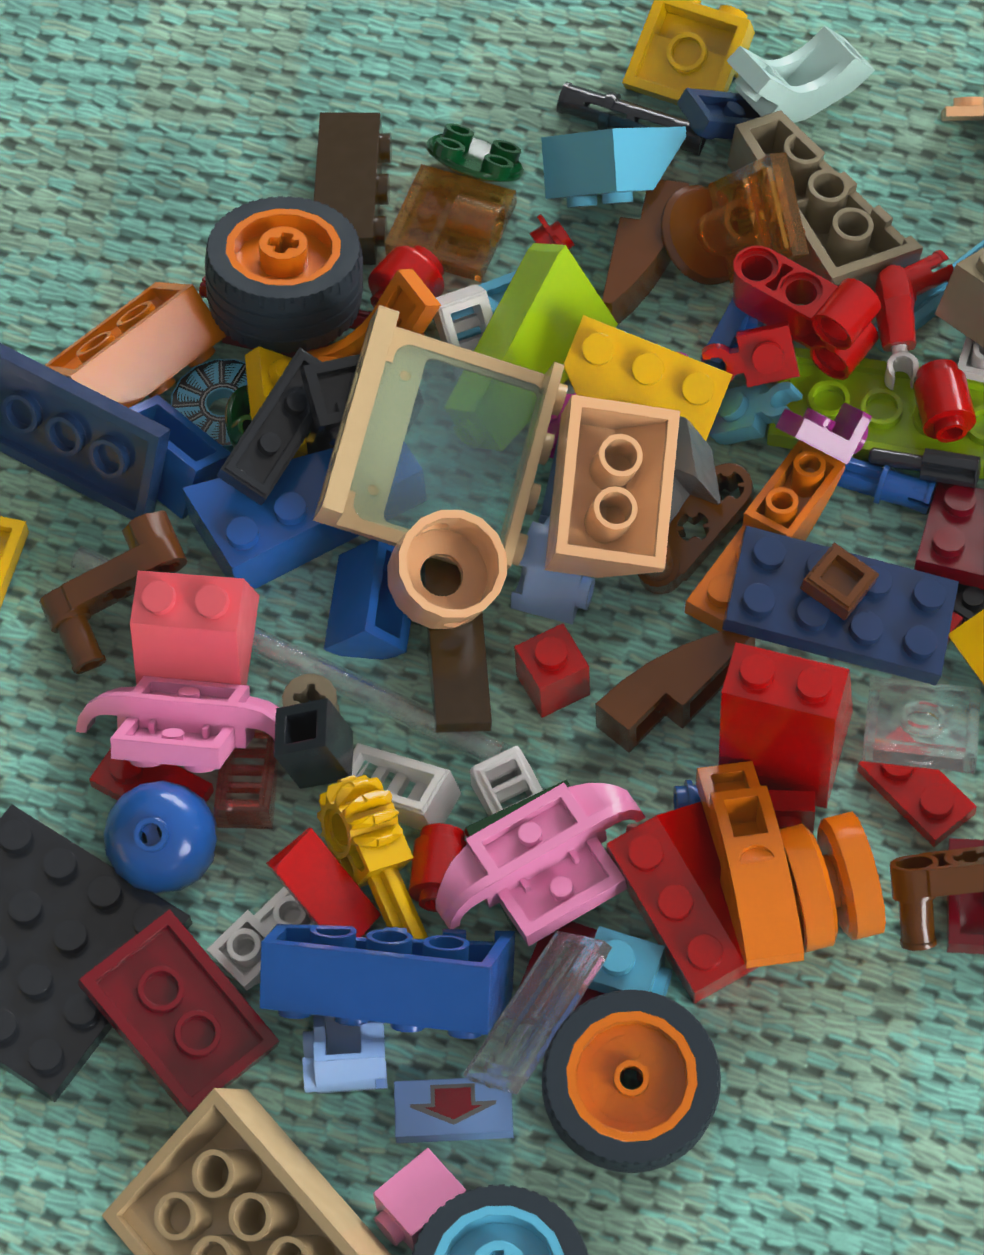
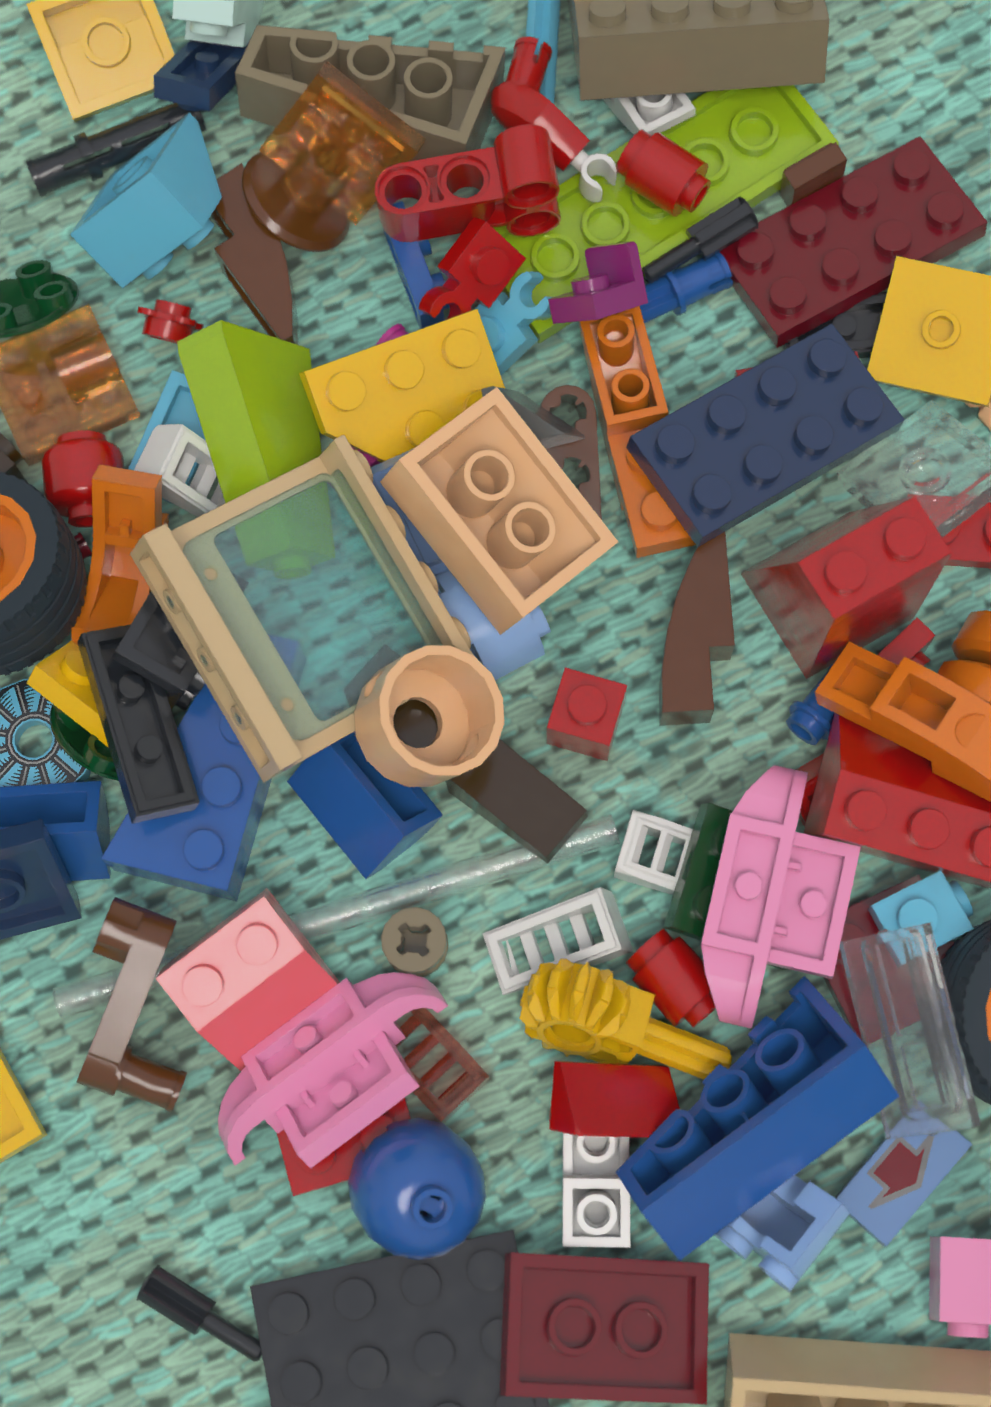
camera: 45 degrees left, 15 degrees up
(313, 743) = (465, 978): black brick -> none
(839, 581) = (760, 415): reddish brown tile -> none

